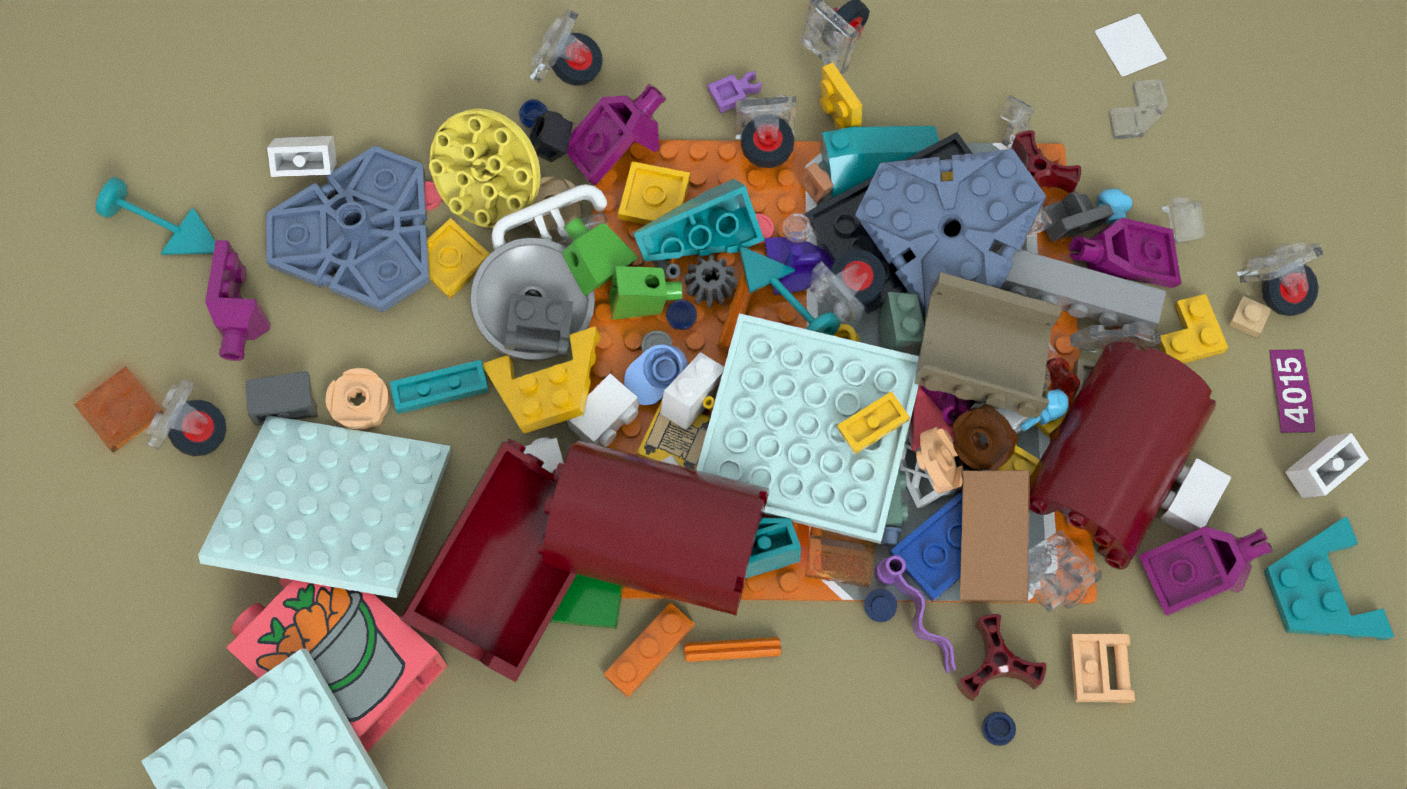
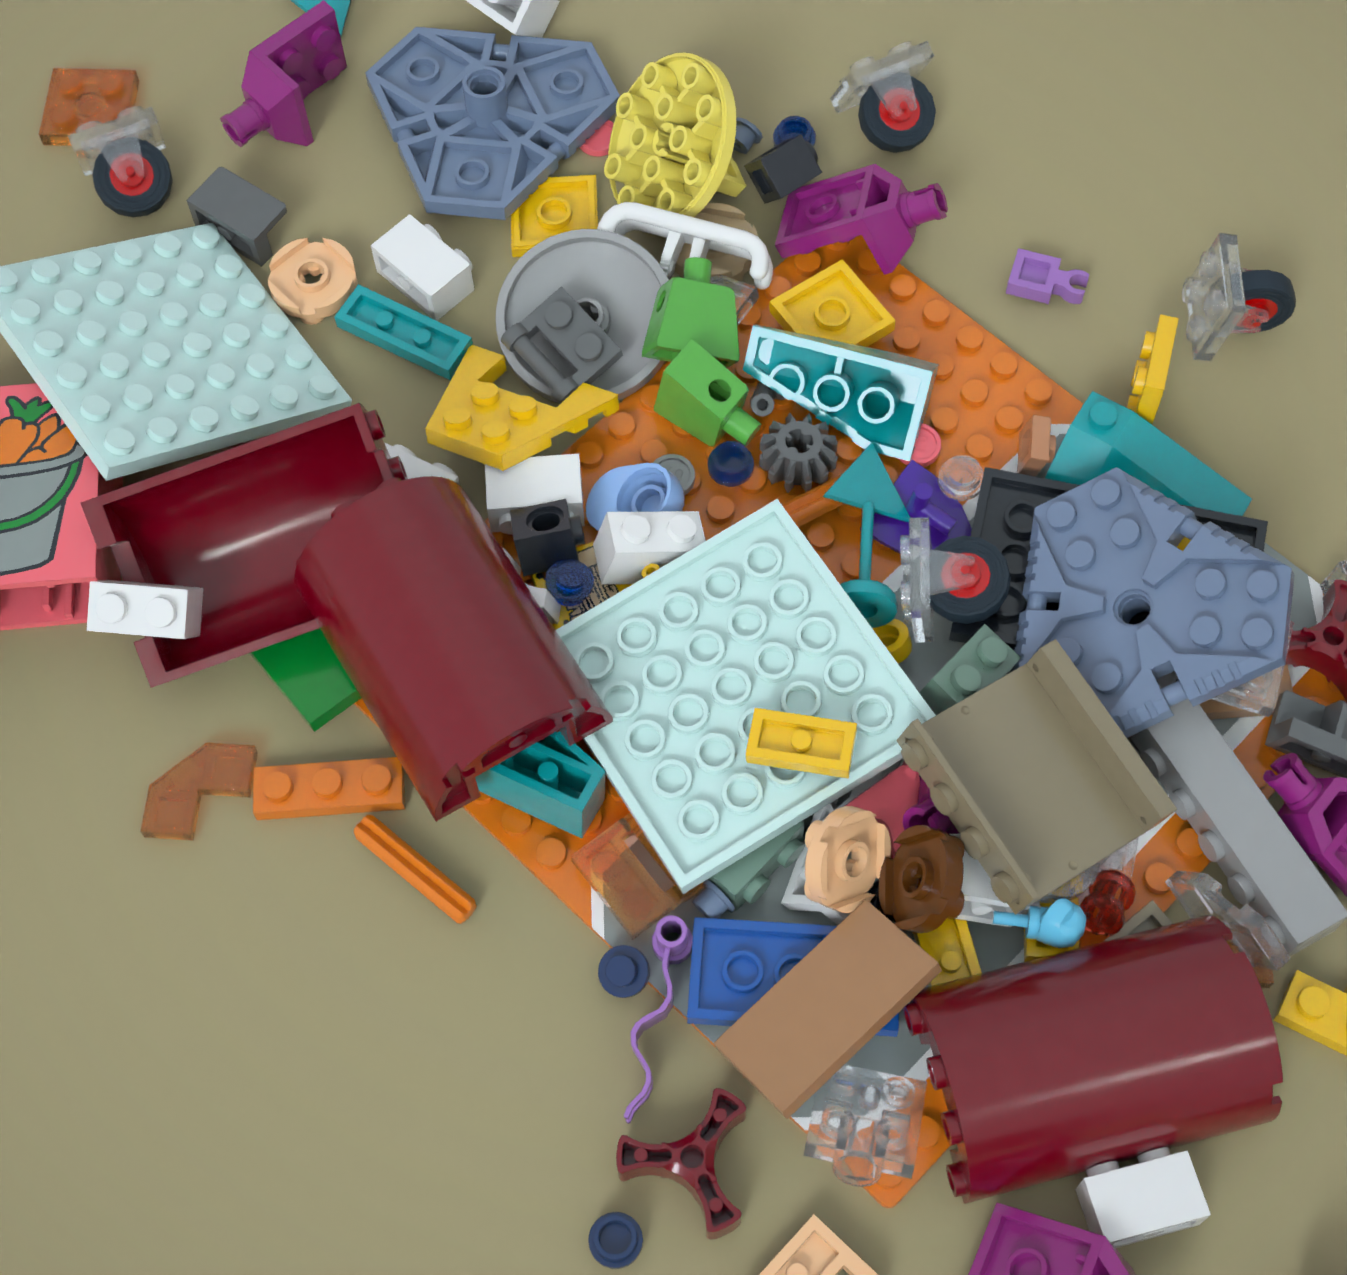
camera: 45 degrees right, 5 degrees down
(413, 343) = (423, 267): none -> white brick
(476, 645) = (144, 609): none -> white brick
(577, 723) = (176, 795): none -> clear orange tile
(625, 430) = (545, 535): none -> black brick
(670, 442) = (569, 582): none -> clear blue plate
(766, 129) = (1033, 340): plate -> none

